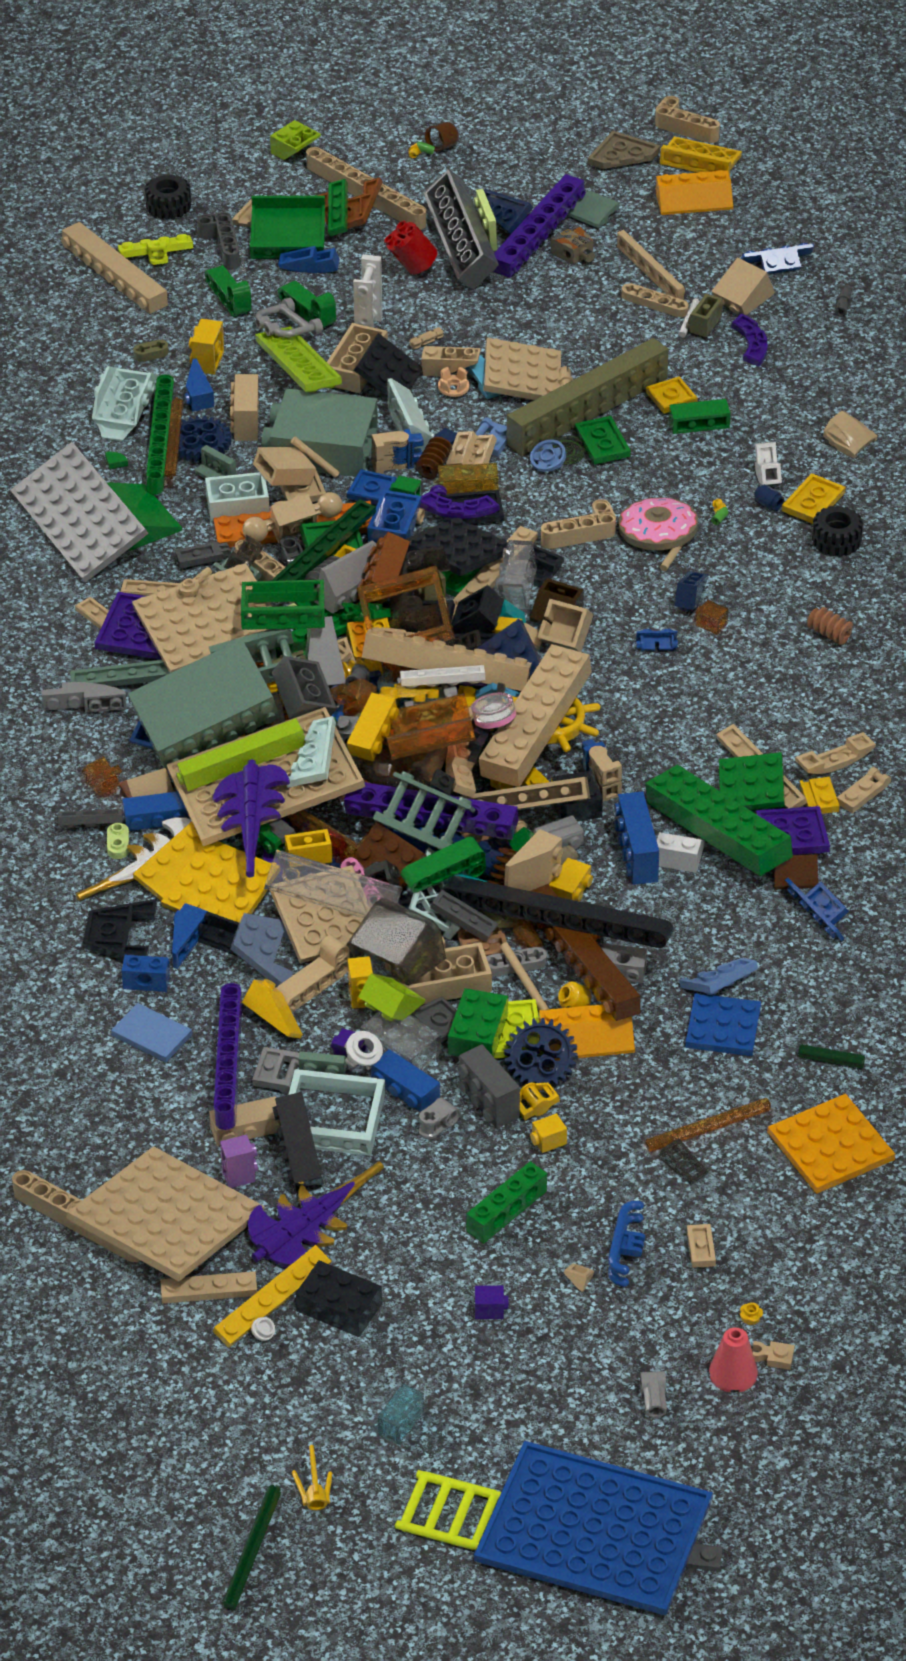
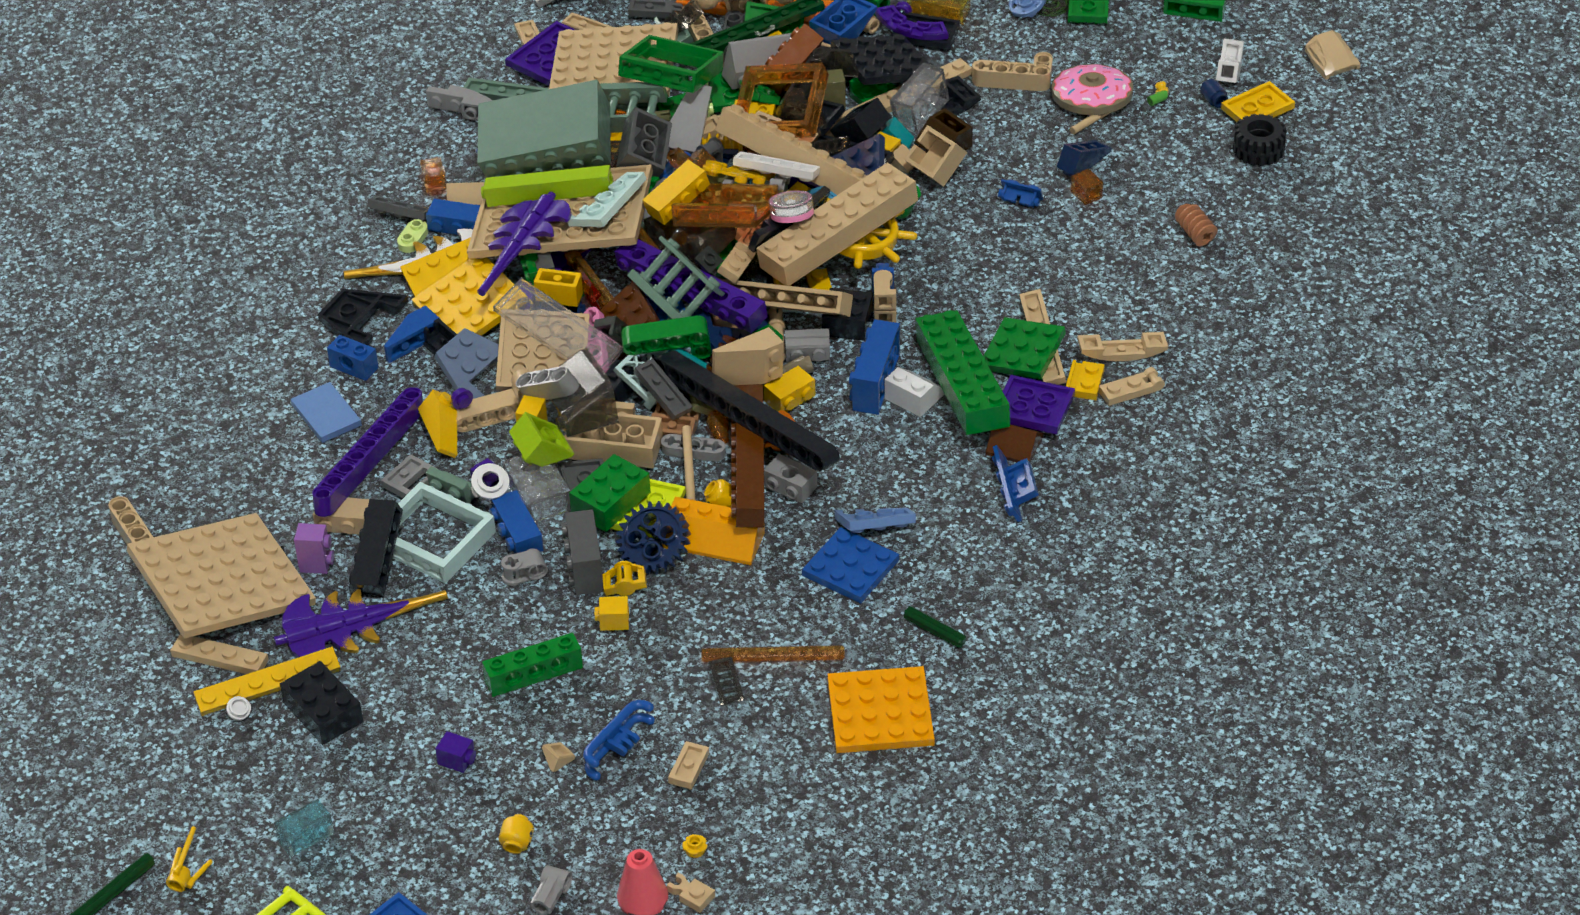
camera: 25 degrees right, 0 degrees up
(190, 587) = (612, 30): tan plate -> none
(285, 980) = (461, 398): none -> dark purple plate
(369, 941) = (548, 383): none -> light grey beam
(592, 1355) = (516, 834): none -> yellow head

